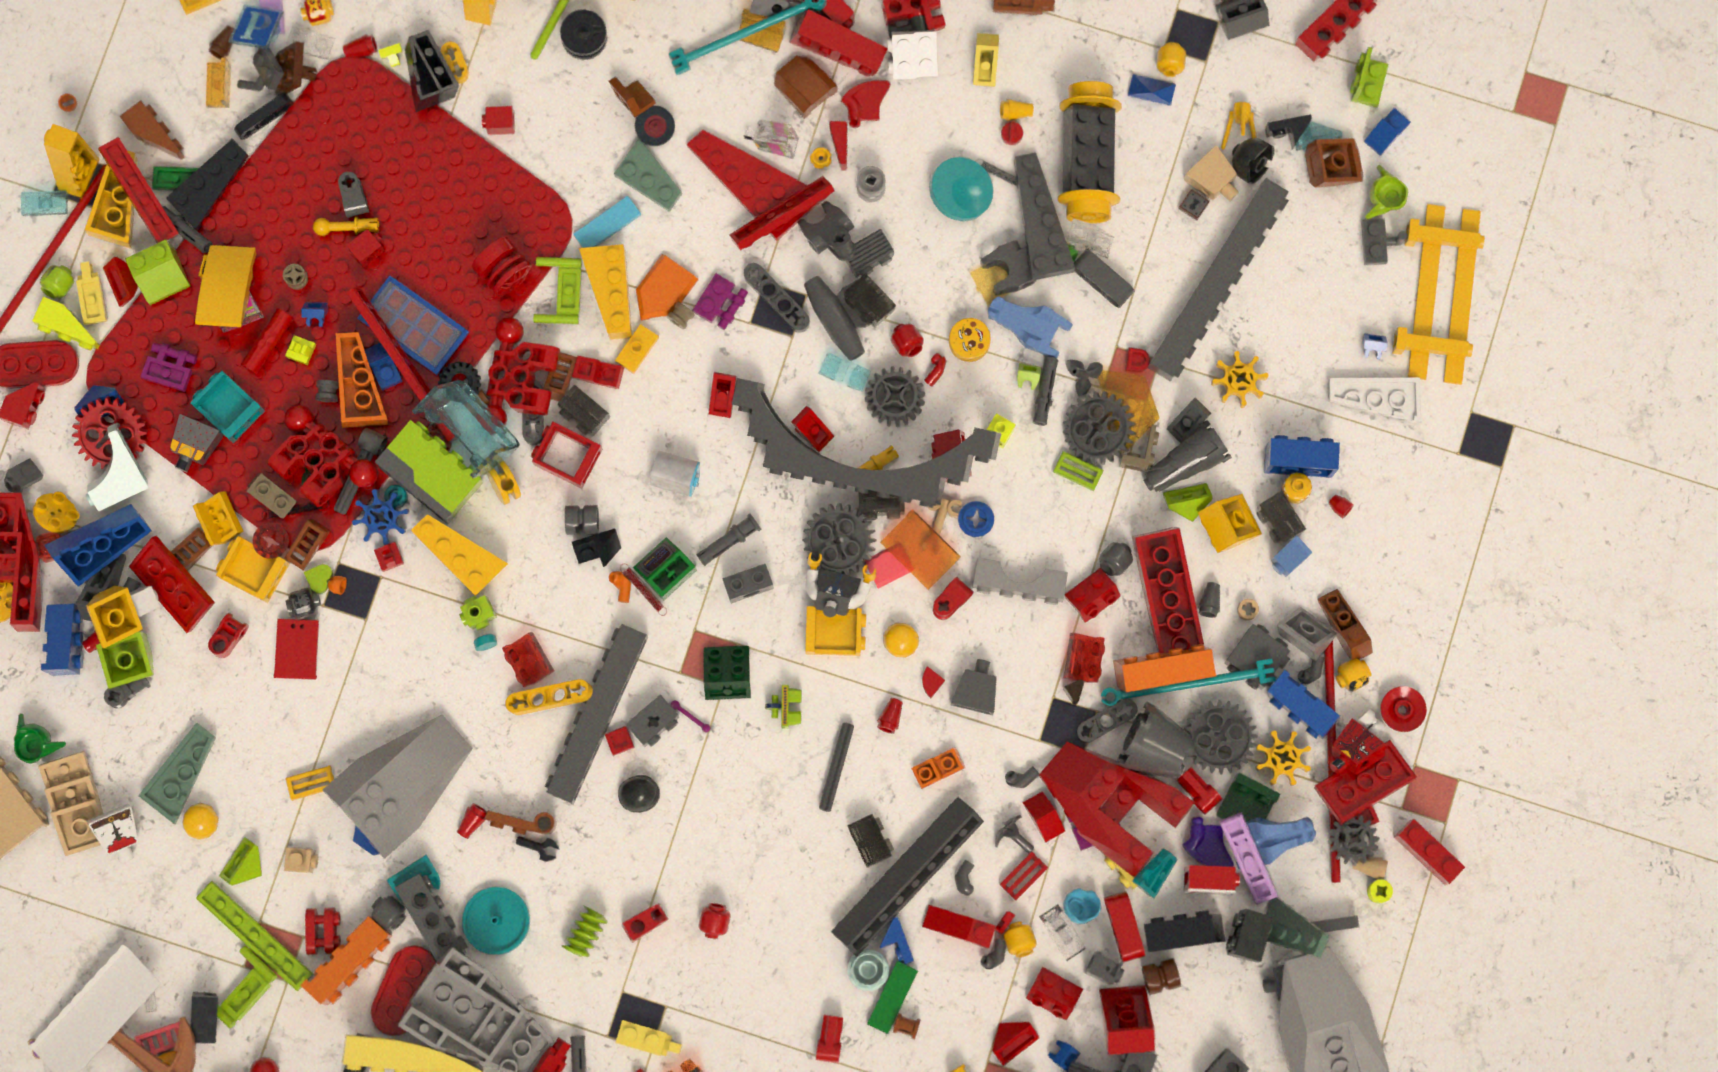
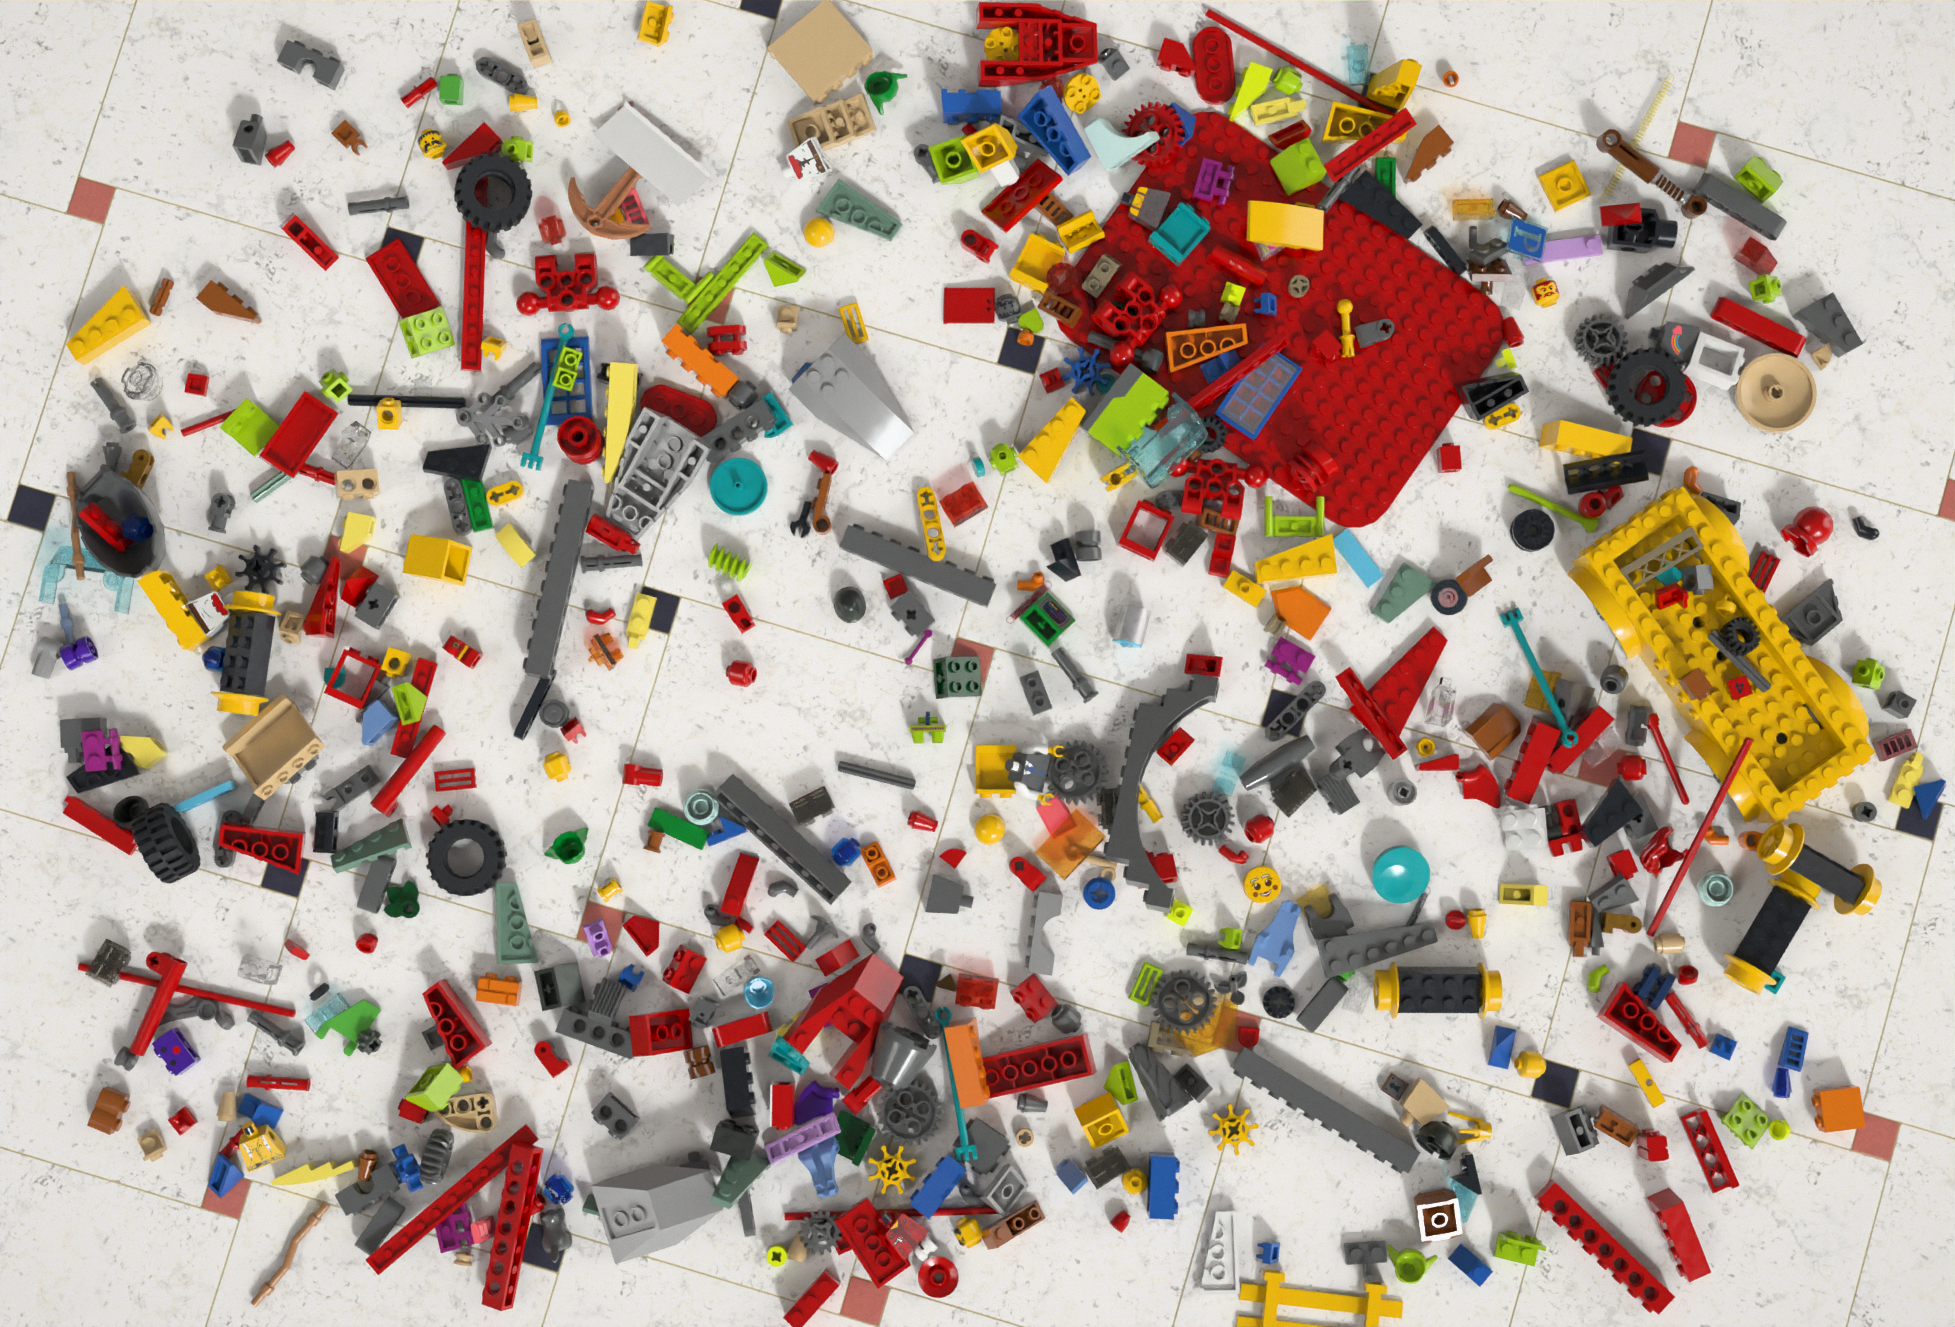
camera: 90 degrees right, 5 degrees up
(322, 354) = (1229, 313): none -> dark tan wheel
(923, 803) = (845, 852): none -> clear blue head
(1091, 331) = (1271, 1008): none -> black gear

